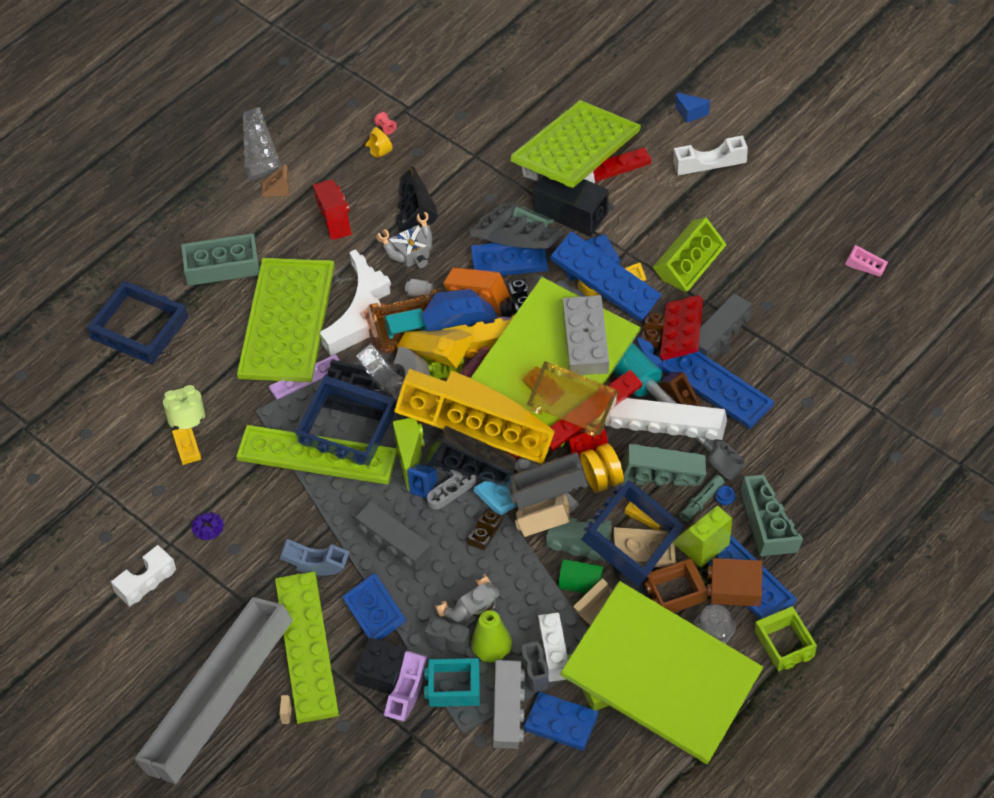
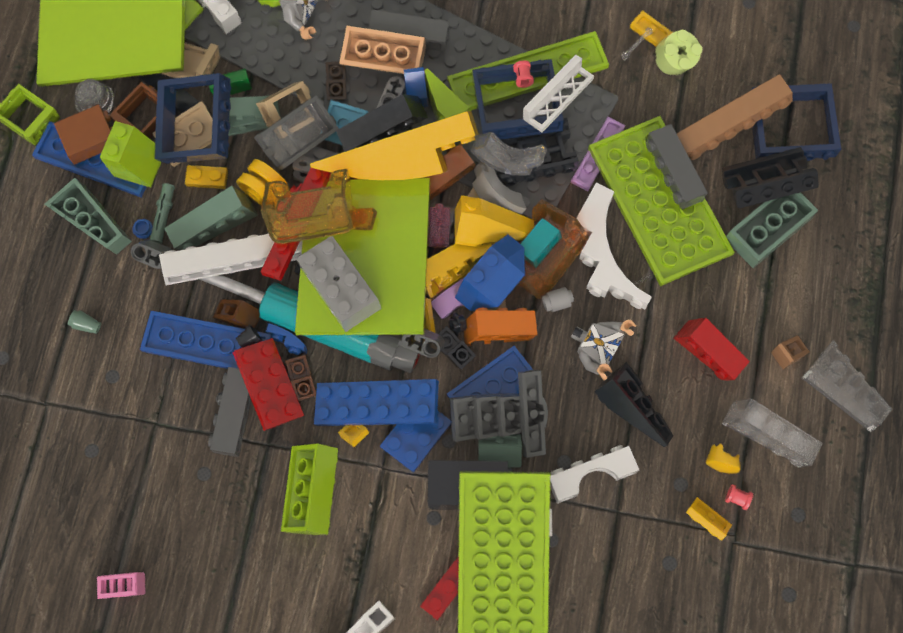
camera: 150 degrees right, 20 degrees up
(186, 335) = (735, 116): none -> medium nougat brick
(192, 294) = (749, 176): none -> black fence
(223, 439) = (625, 55): none -> clear hinge
(258, 325) = (676, 167): none -> dark grey brick
(315, 393) = (554, 88): none -> white fence
(329, 424) = (522, 70): none -> coral bush
(334, 144) = (772, 432): none -> clear wedge
(415, 120) = (709, 519): none -> yellow plate
(431, 520) = (382, 50): none -> light nougat slope
(497, 179) = (618, 464): none -> white arch
(679, 362) = (248, 337): none -> black piece
(812, 445) = (81, 321): none -> sand green cone

